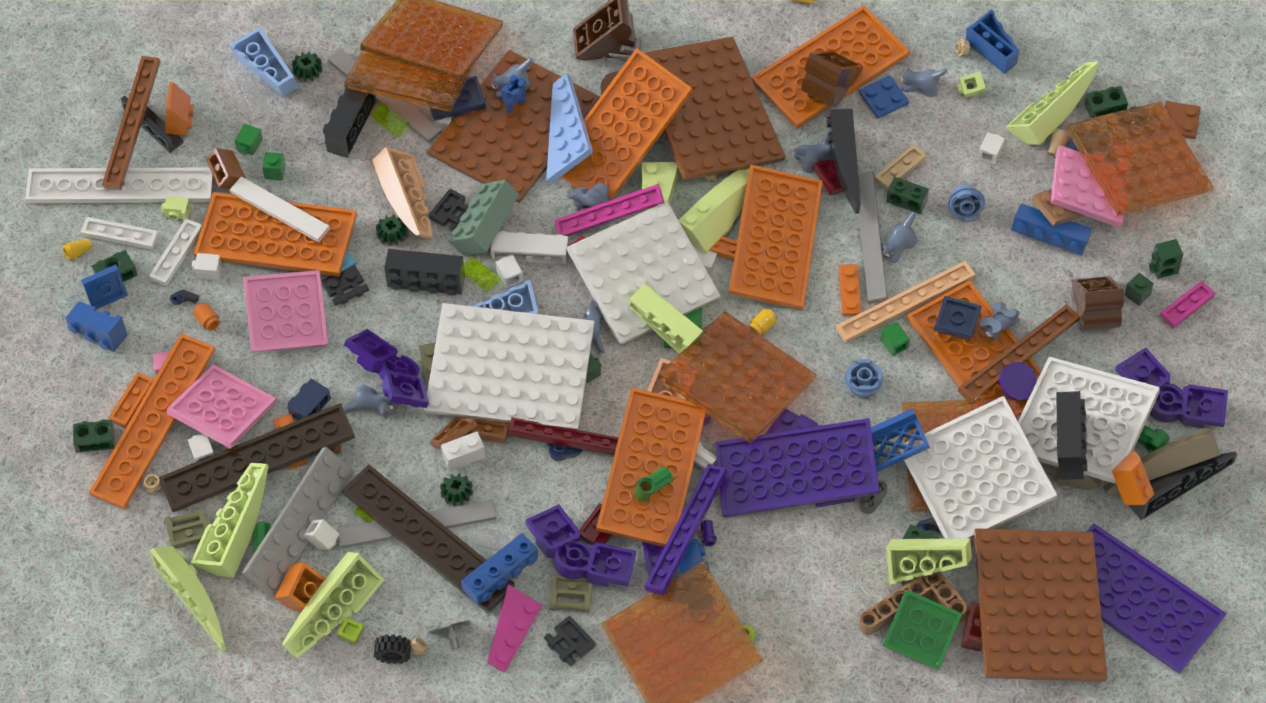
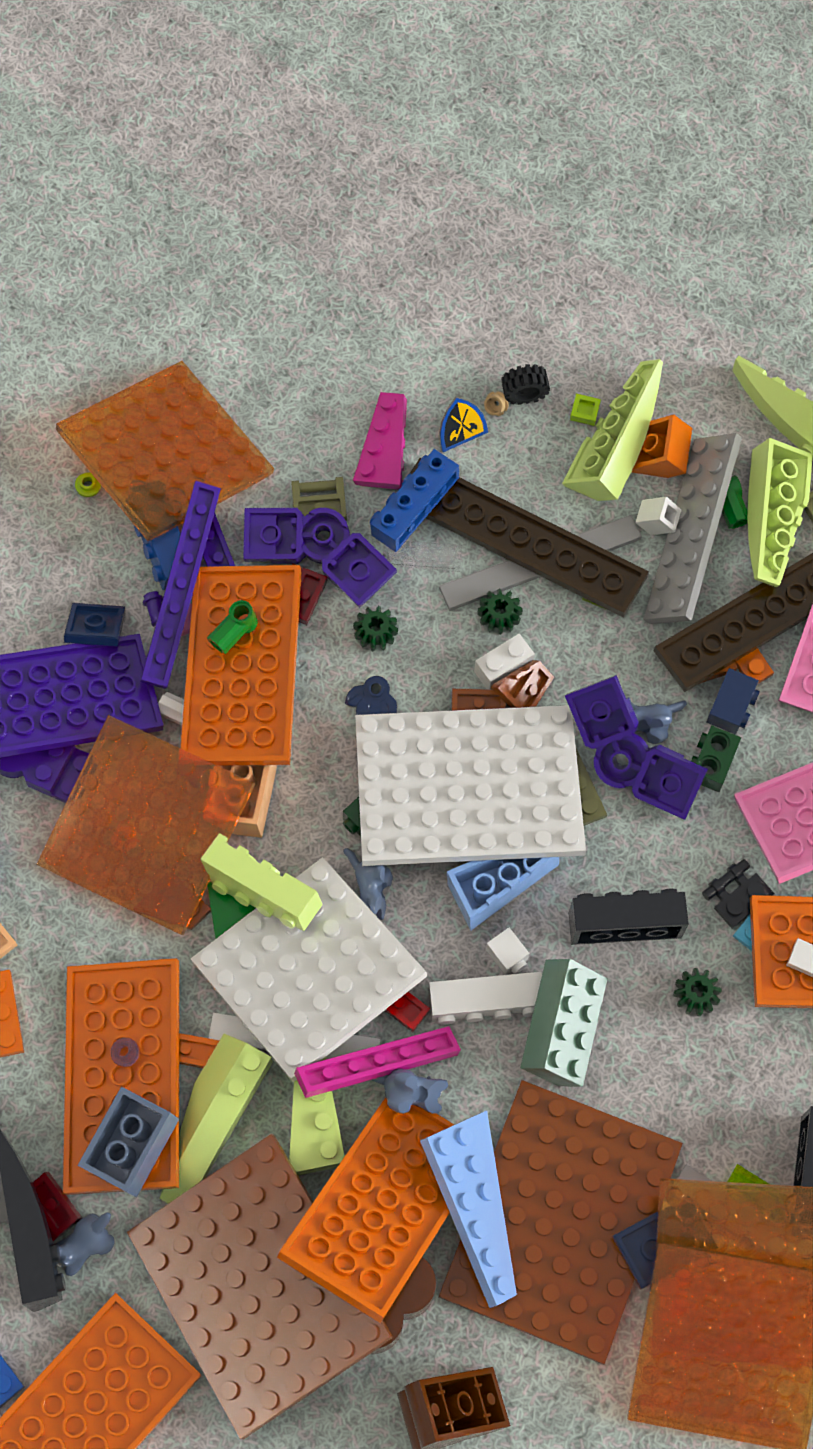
camera: 165 degrees right, 10 degrees up
(330, 365) = (718, 760): none -> dark green brick
(403, 188) = (698, 1063): light nougat wedge -> none
(447, 207) = (625, 1047): black plate -> none
(480, 274) = (548, 944): clear neon green tile -> none
(514, 93) = (569, 1253): blue animal -> none
(519, 70) = (580, 1289): sand blue animal -> none
(543, 496) = (375, 618): none -> dark green gear
(563, 436) = (345, 706): dark red tile -> none
(576, 638) = (304, 446): black plate -> none
(626, 49) = (399, 1363): flat silver shield -> none
(754, 524) = (94, 624): none -> dark blue tile
(763, 321) = (124, 933): yellow brick -> none
(771, 246) = (132, 1055): none -> plate
(775, 185) = (128, 1141): none -> sand blue brick
(829, 76) = (63, 1379): reddish brown brick -> none

